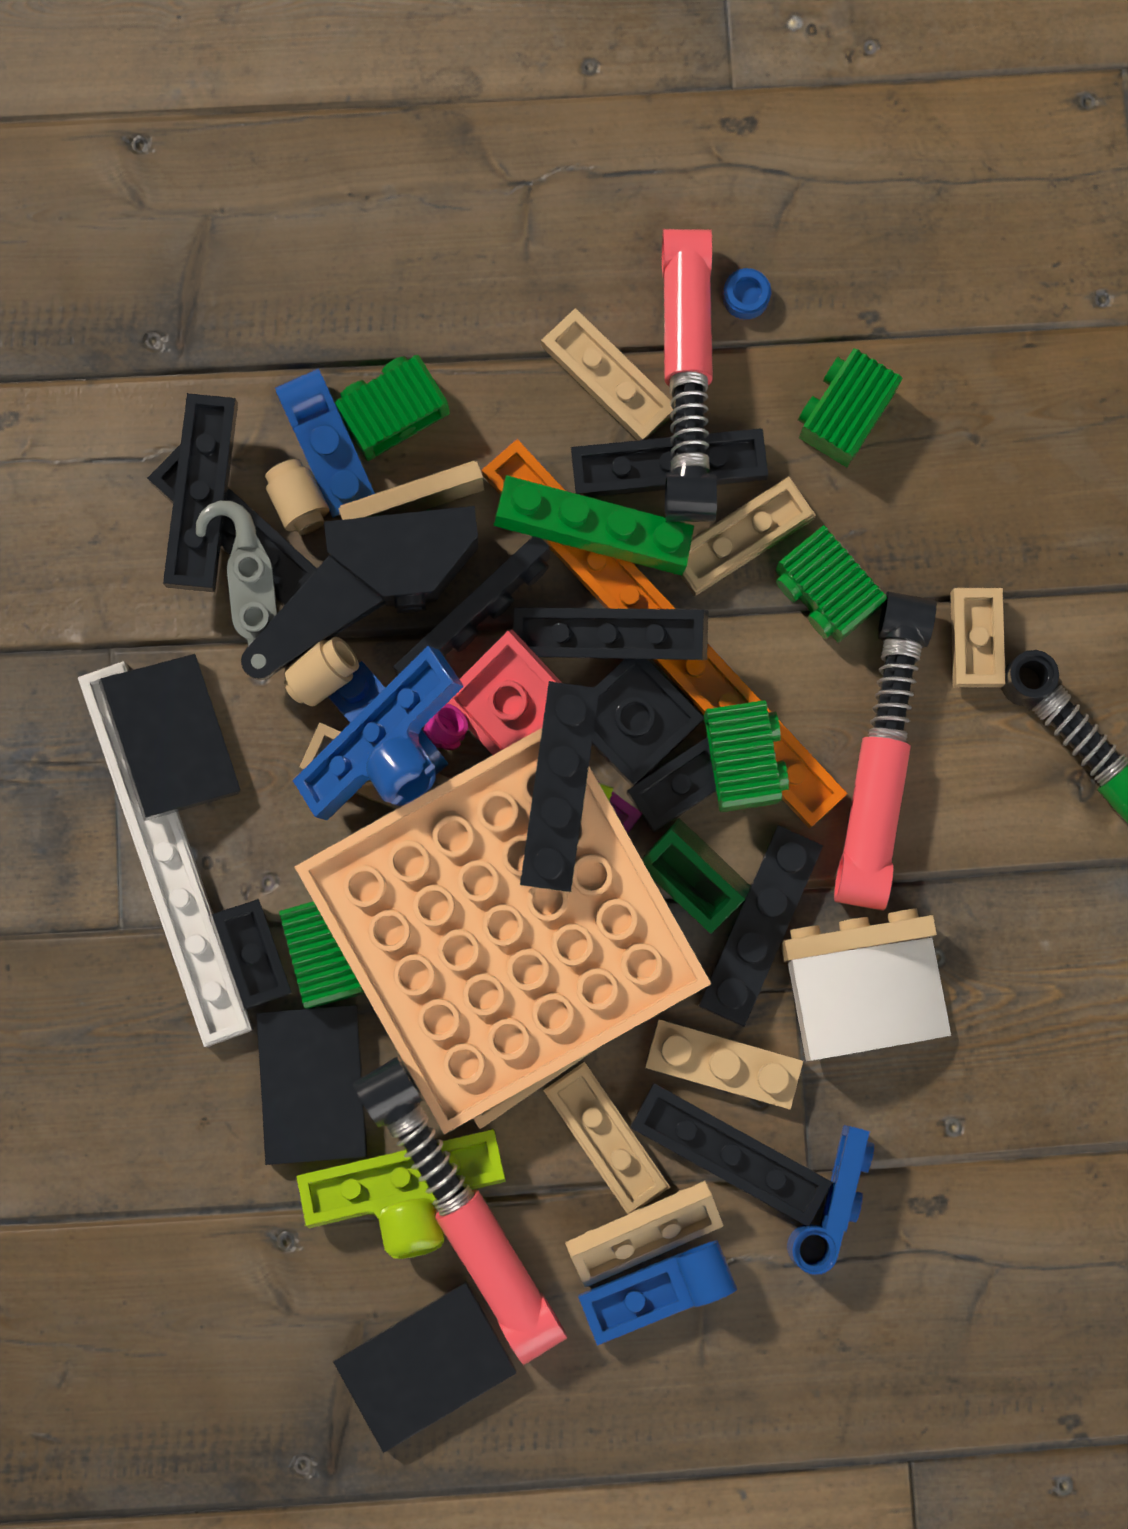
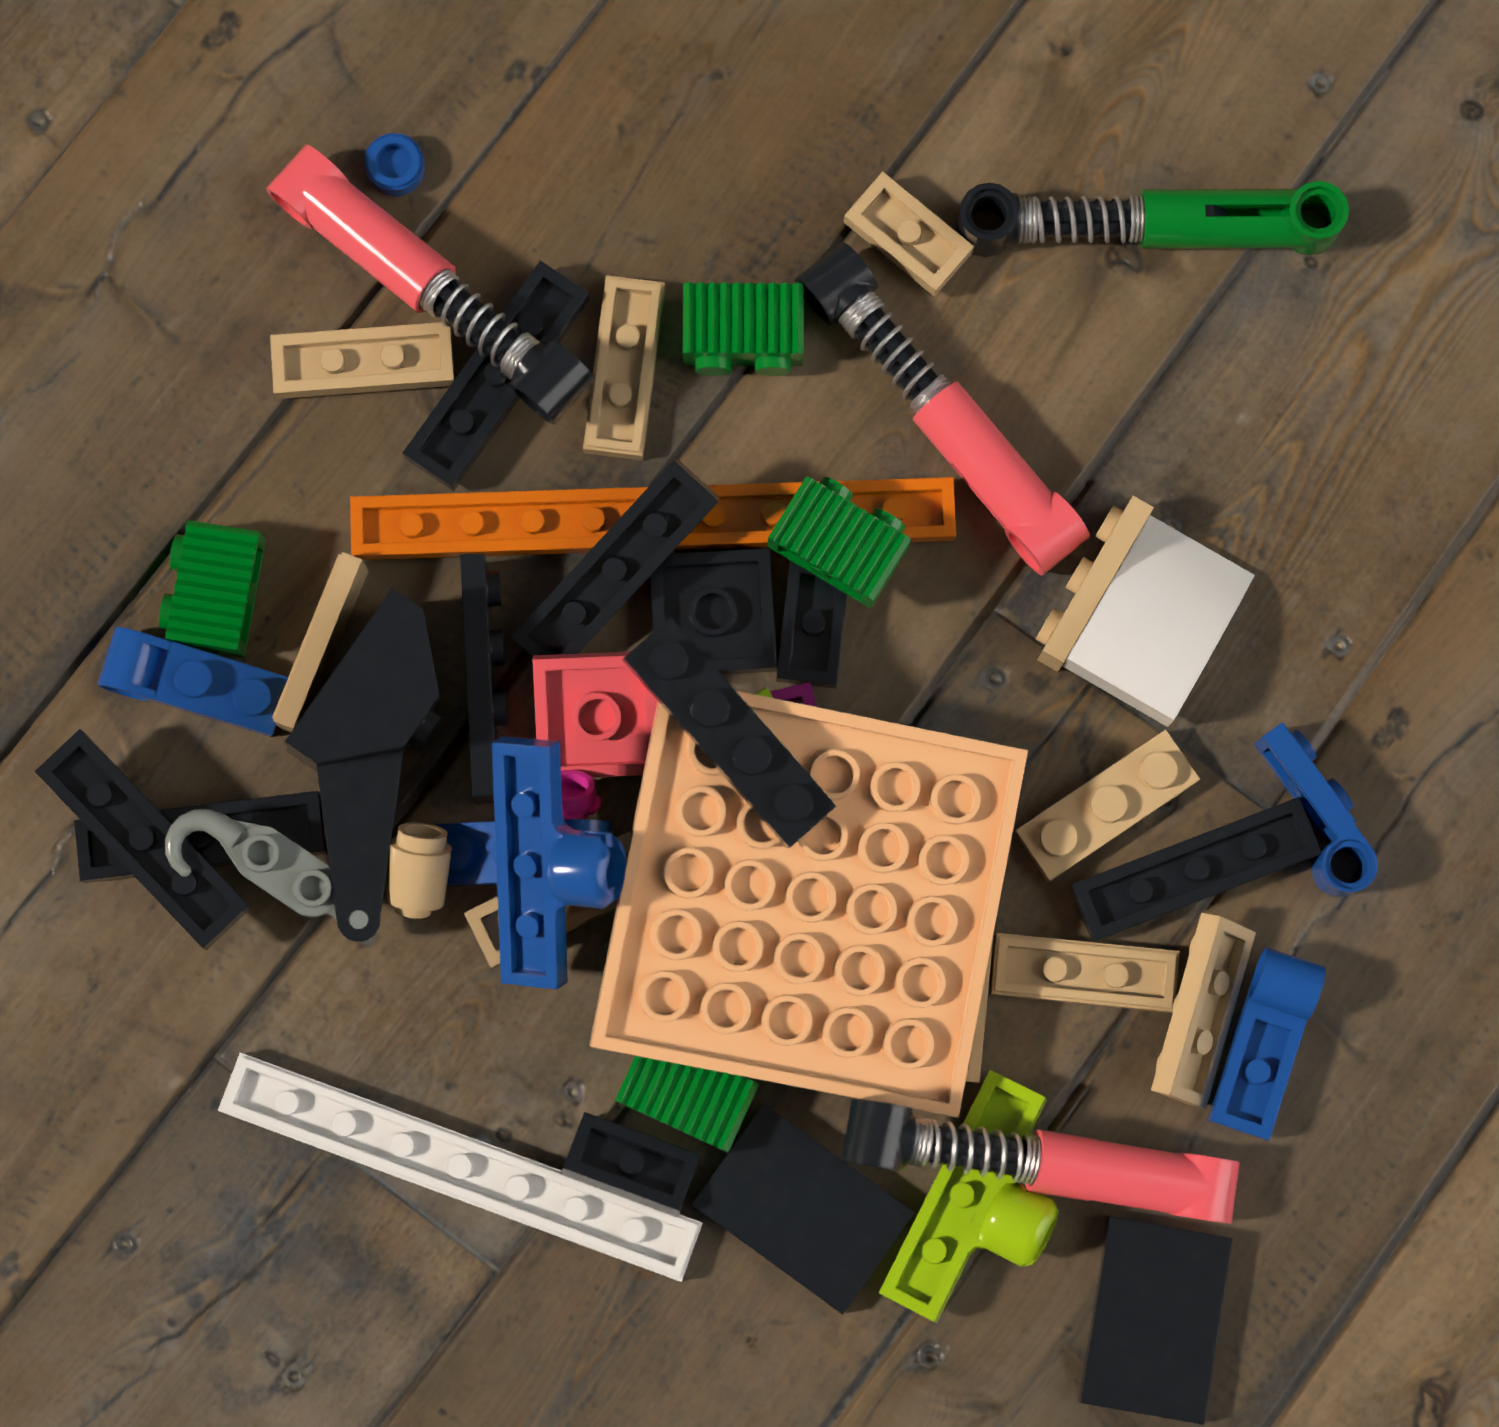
camera: 50 degrees left, 0 degrees up
(169, 736) = (353, 1068): black tile -> none
(296, 497) = (224, 753): tan brick -> none
(594, 525) = (498, 495): green plate -> none
(695, 876) = (912, 681): dark green brick -> none
(760, 926) = (1006, 662): black plate -> none
(849, 407) = (589, 163): green brick -> none

